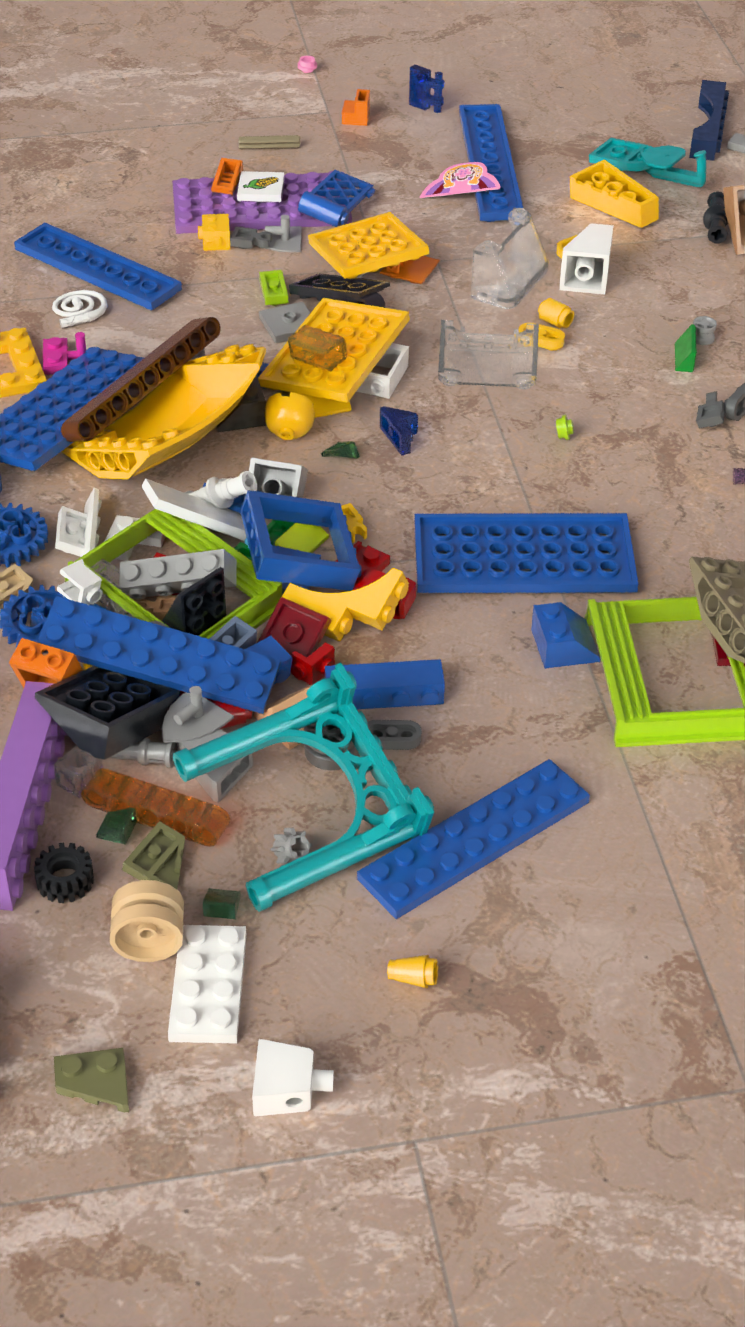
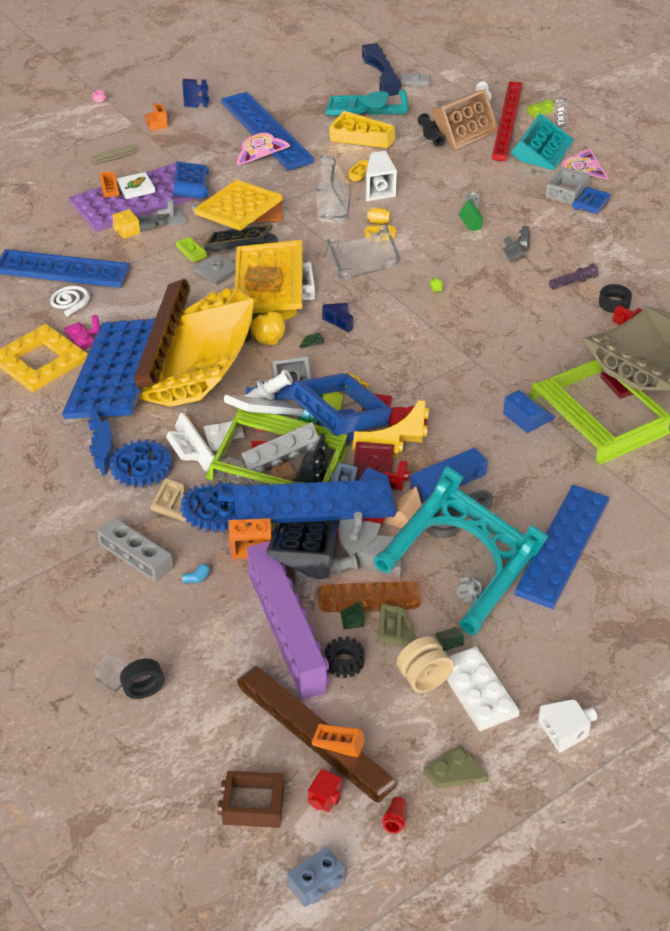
camera: 25 degrees left, 0 degrees up
(82, 583) = (229, 475): white window -> none
(414, 970) = (590, 633): yellow cone -> none
(512, 579) = (521, 364): blue piece -> none

